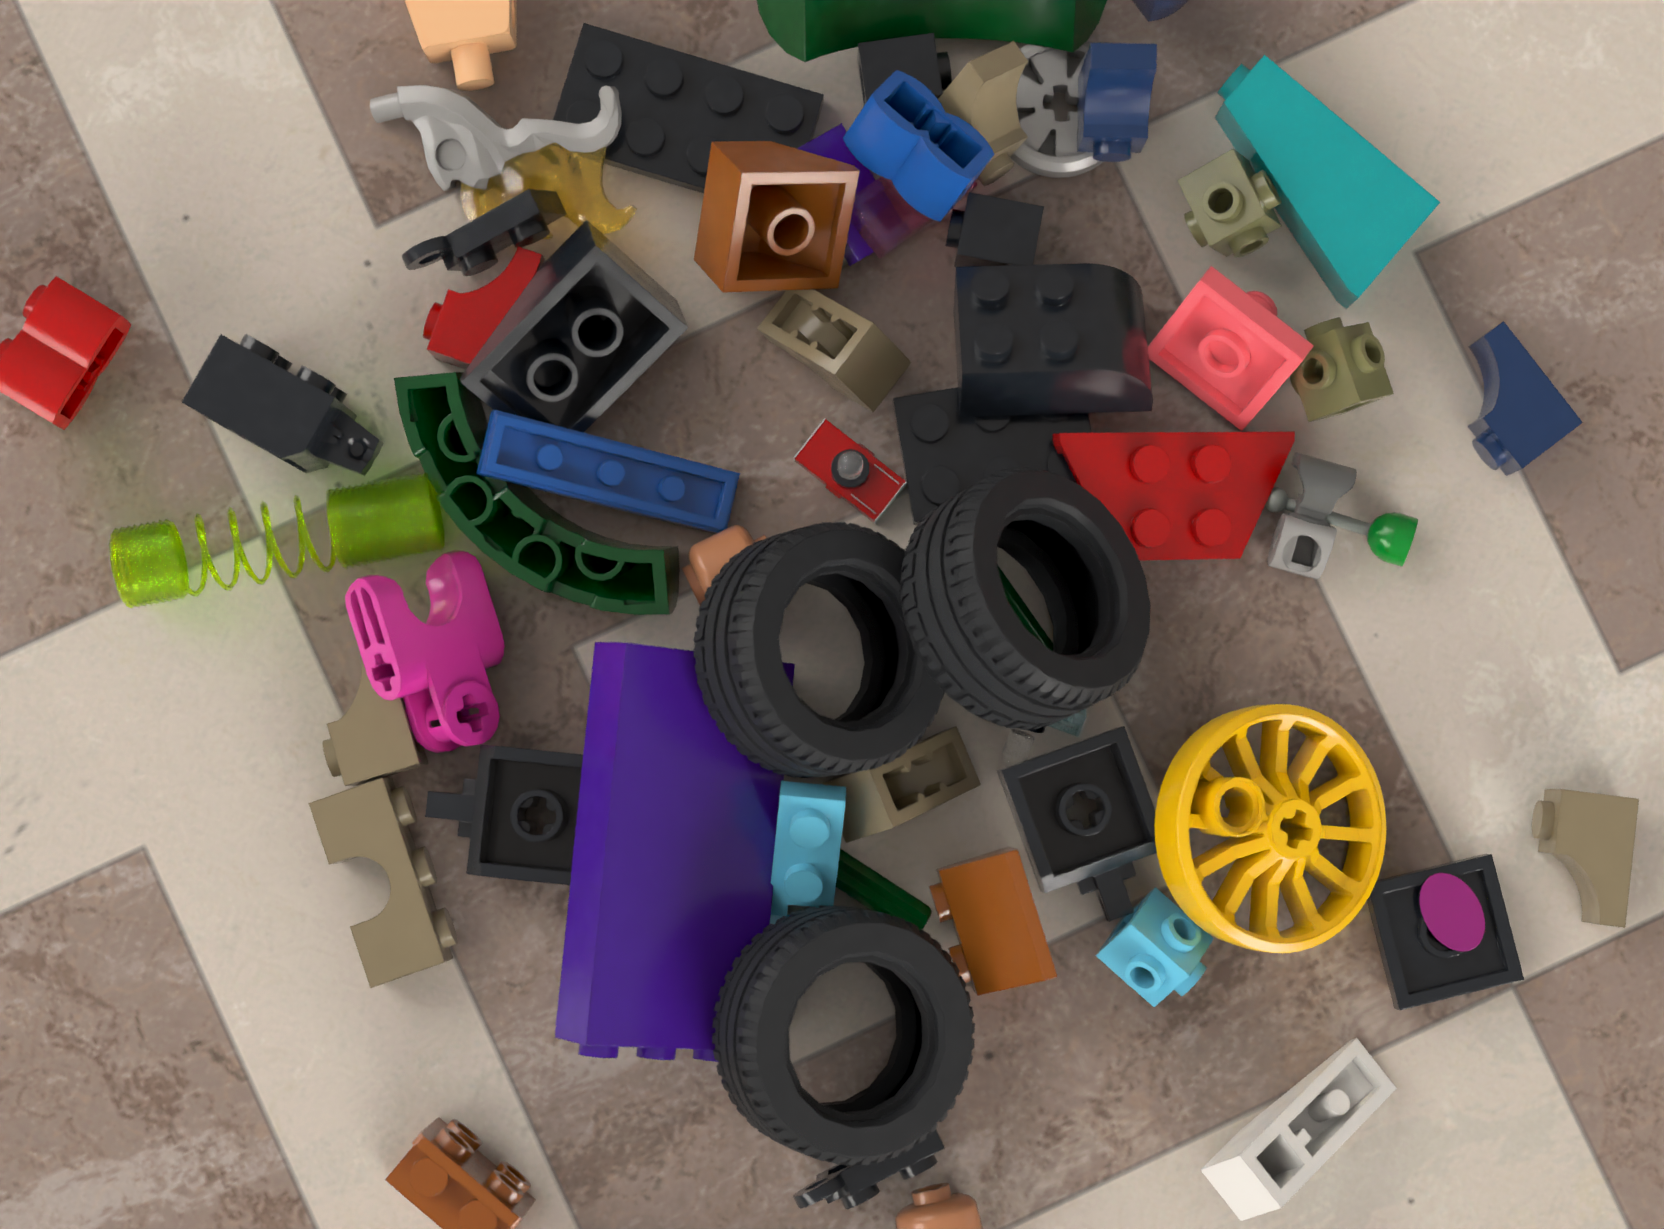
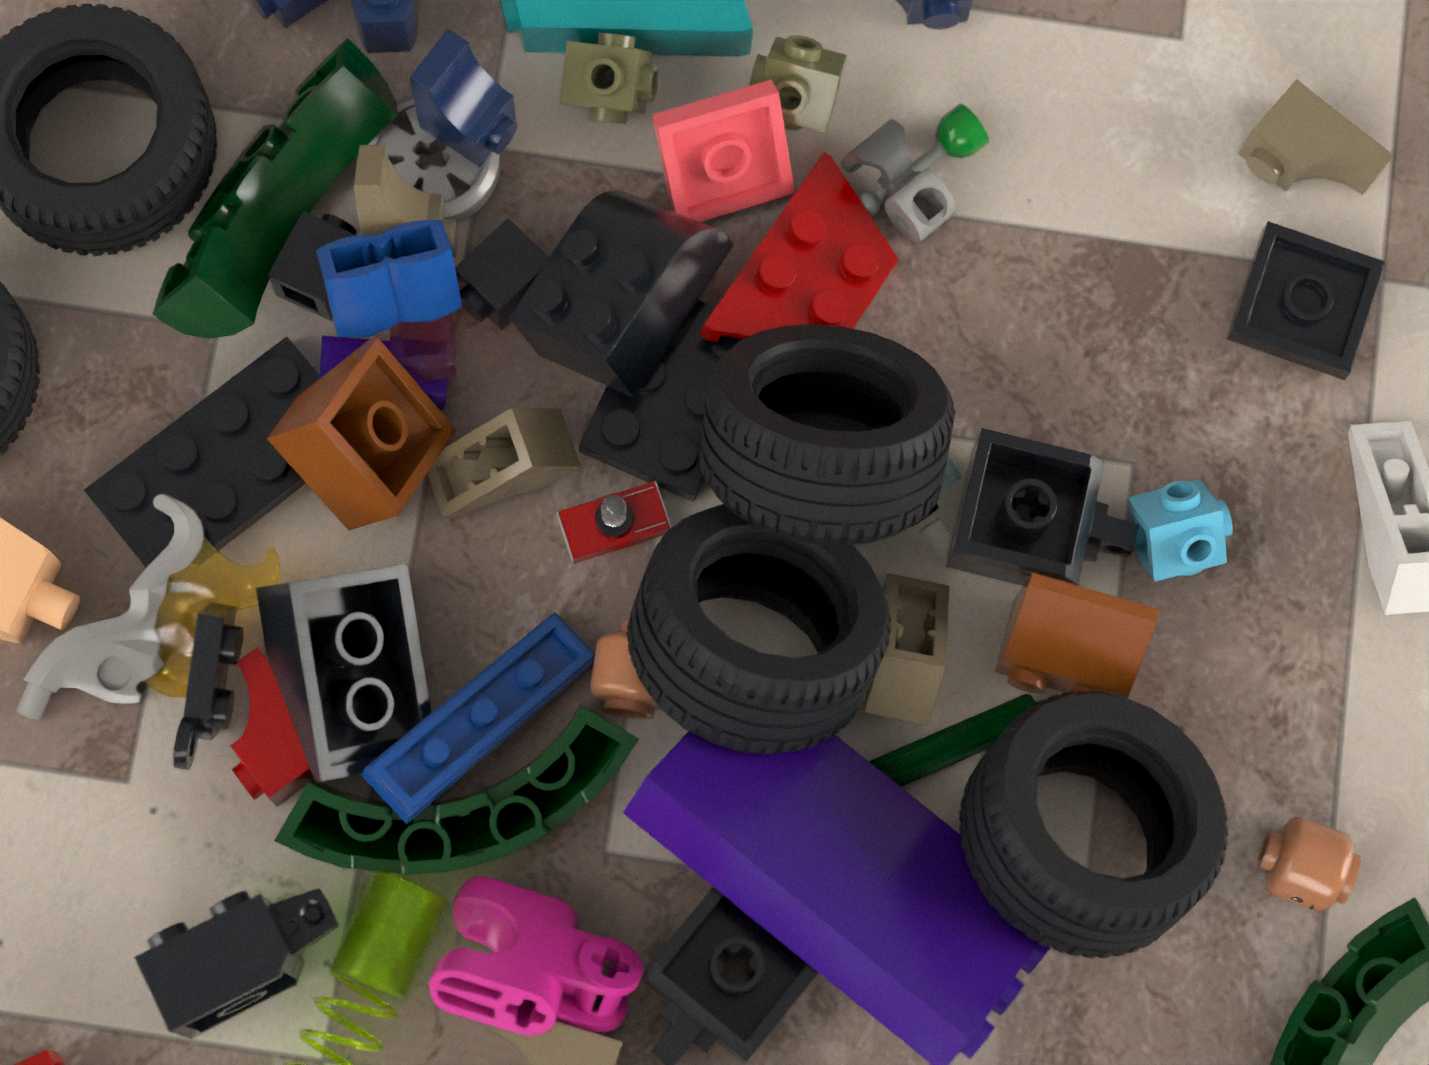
camera: 60 degrees left, 10 degrees down
(806, 846) = (911, 753): medium azure plate -> none
(858, 1182) = (1222, 905): black hinge -> none
(1270, 827) = (1140, 368): yellow piece -> none
(1452, 912) = (1296, 280): magenta sticker -> none

